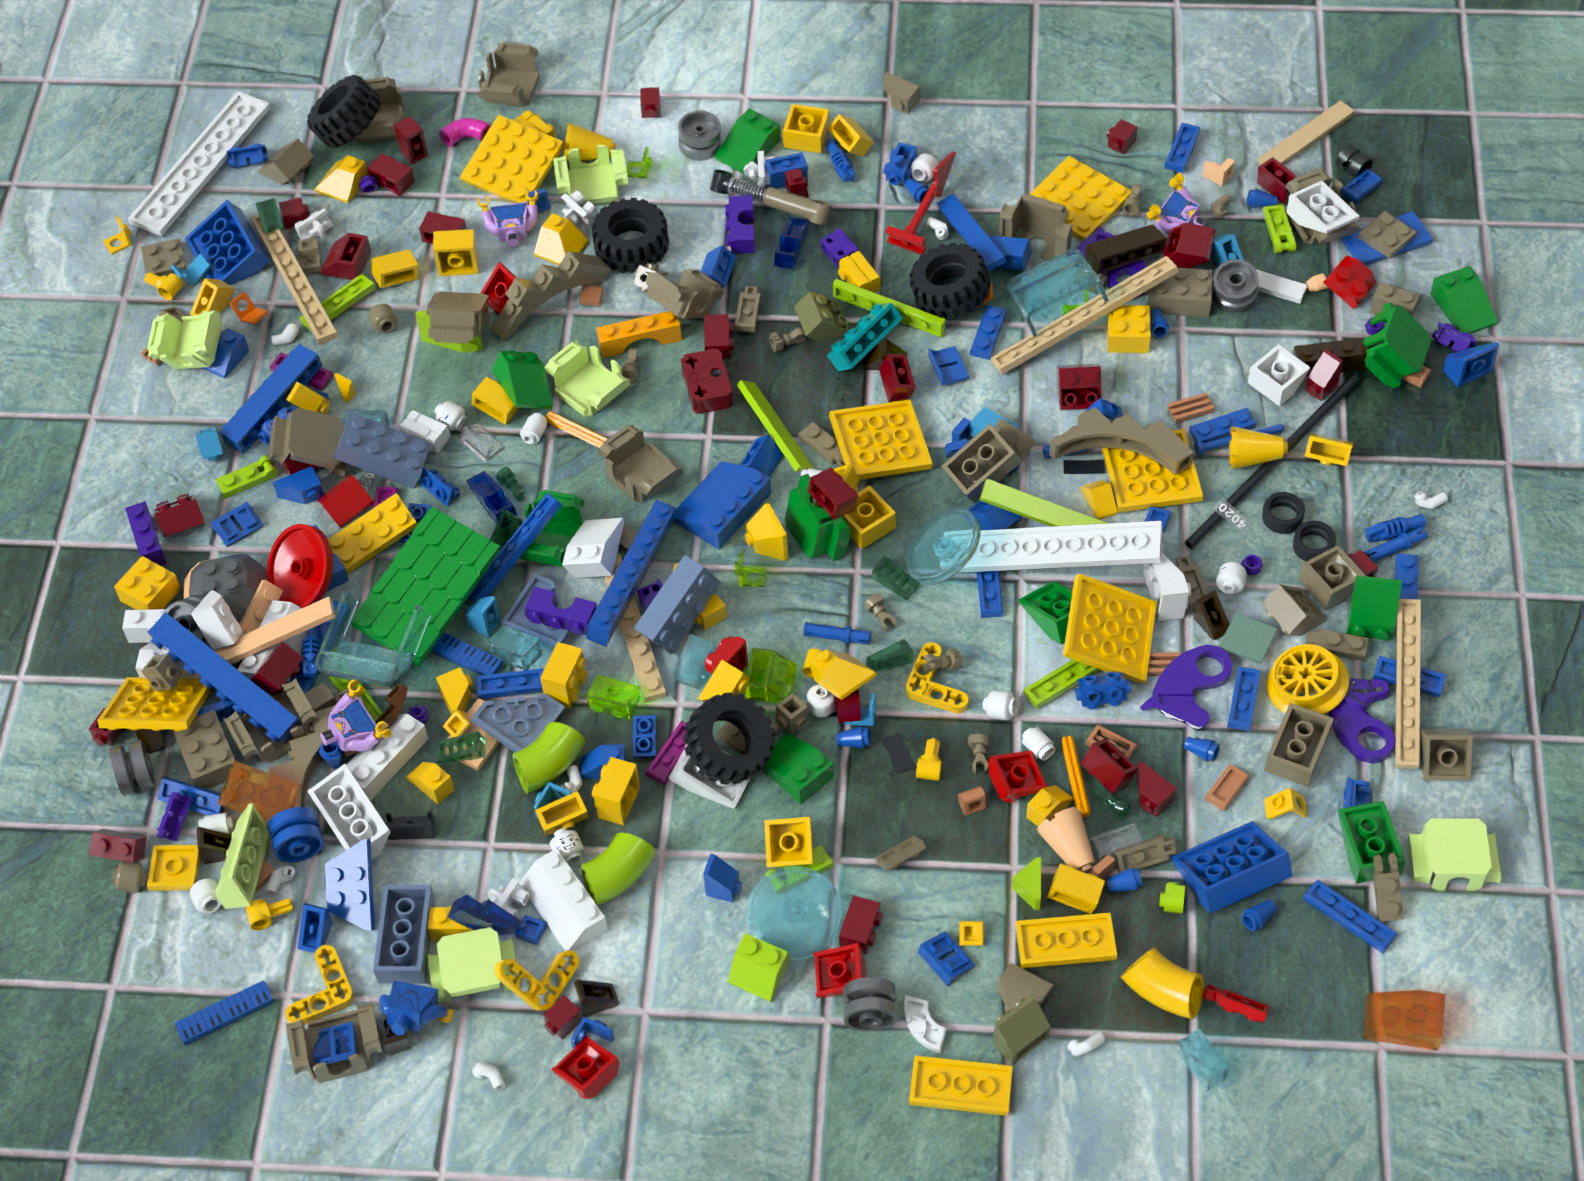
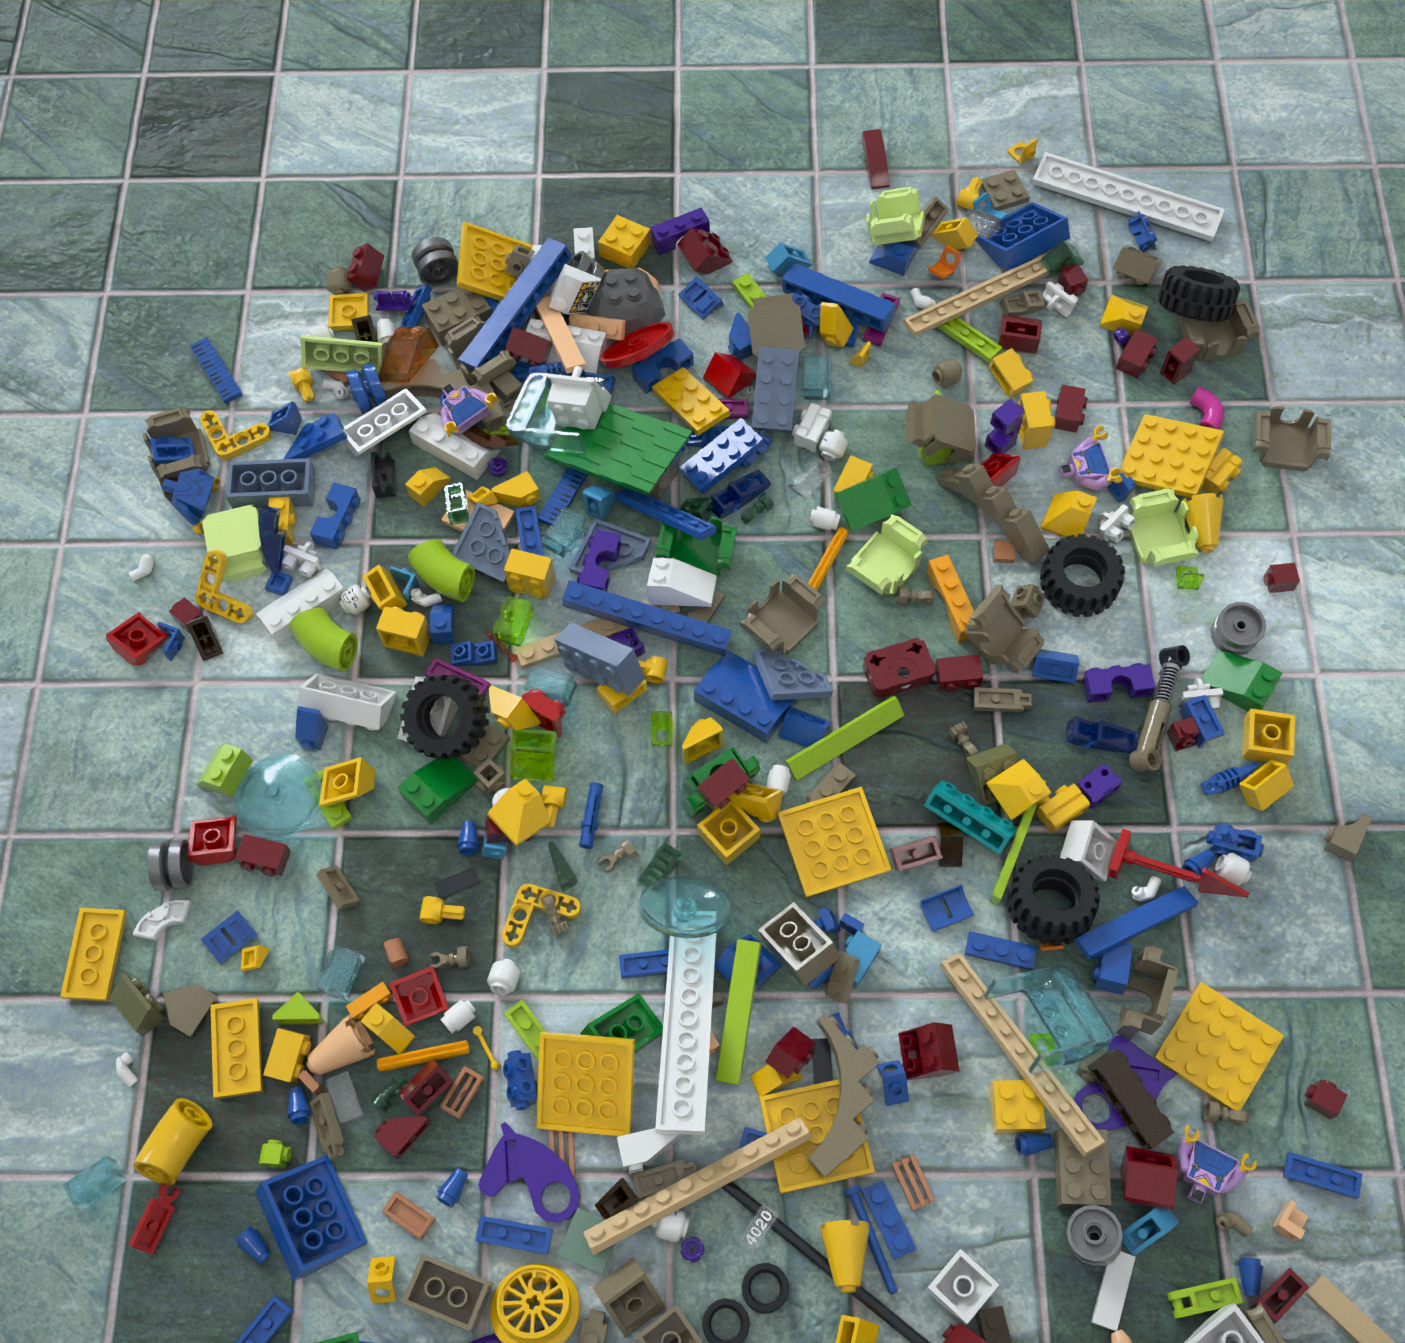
camera: 85 degrees right, 10 degrees up
(94, 358) = (875, 159): none -> dark red slope
(209, 269) = (983, 223): none -> clear slope
(369, 615) = (577, 400): none -> white piece
(439, 861) = (331, 530): none -> blue arch
(442, 491) = (722, 455): none -> plate
(463, 263) = (1007, 424): none -> dark purple arch
(653, 702) = (513, 657): none -> clear red hinge
(688, 850) = (347, 701): none -> white slope
(708, 466) = (789, 678): none -> sand blue plate
(846, 291) = (1018, 789): none -> yellow slope
(895, 261) = (1090, 847): none -> white slope
(990, 847) = (340, 972): none -> clear light blue brick
(1020, 823) = (361, 1005): none -> light orange piece
(1052, 732) = (478, 1032): none -> yellow hinge
(1081, 476) = (791, 1053): none -> dark red brick
(1201, 550) = (696, 1185): none -> tan plate

